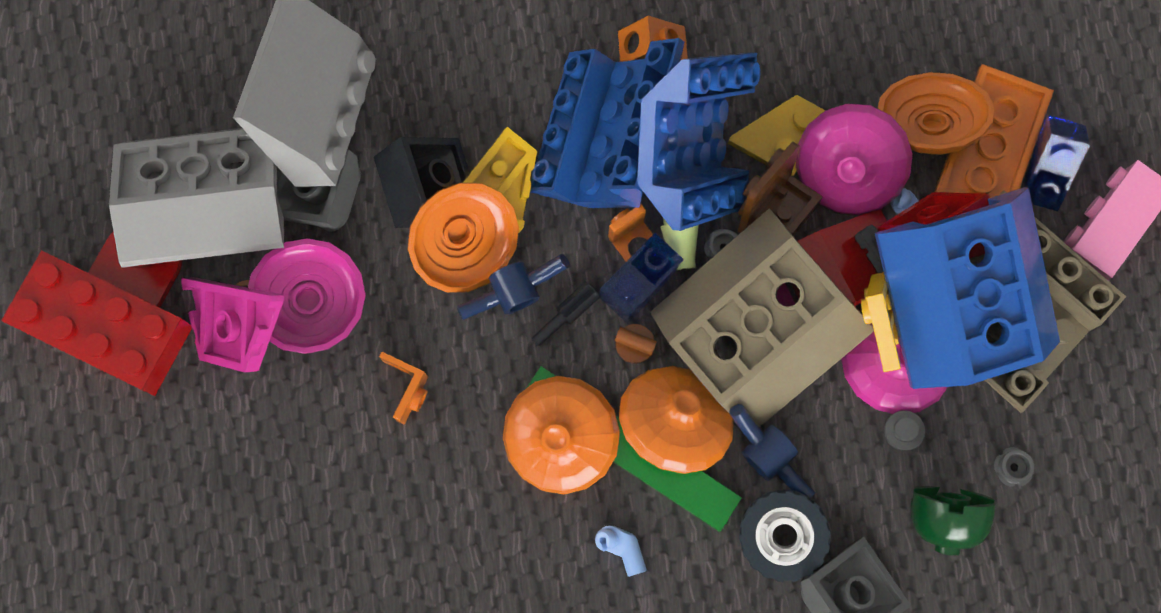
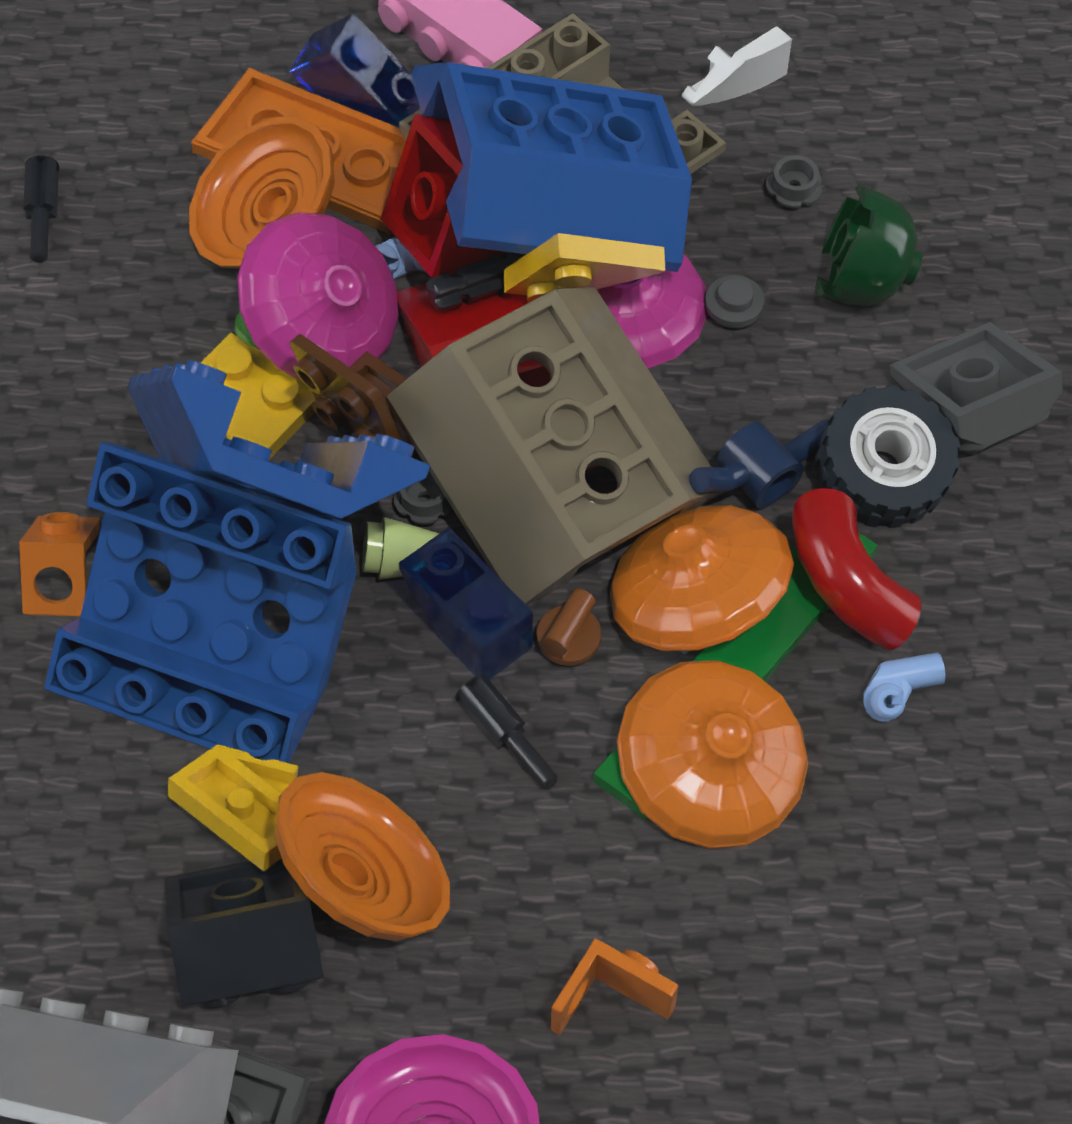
camera: 85 degrees left, 20 degrees down
(514, 287) = (456, 799): dark blue piece -> none
(626, 227) = (372, 620): orange bracket -> none
(687, 506) = (845, 573): none -> red cylinder
(1111, 429) = (745, 71): none -> white slope

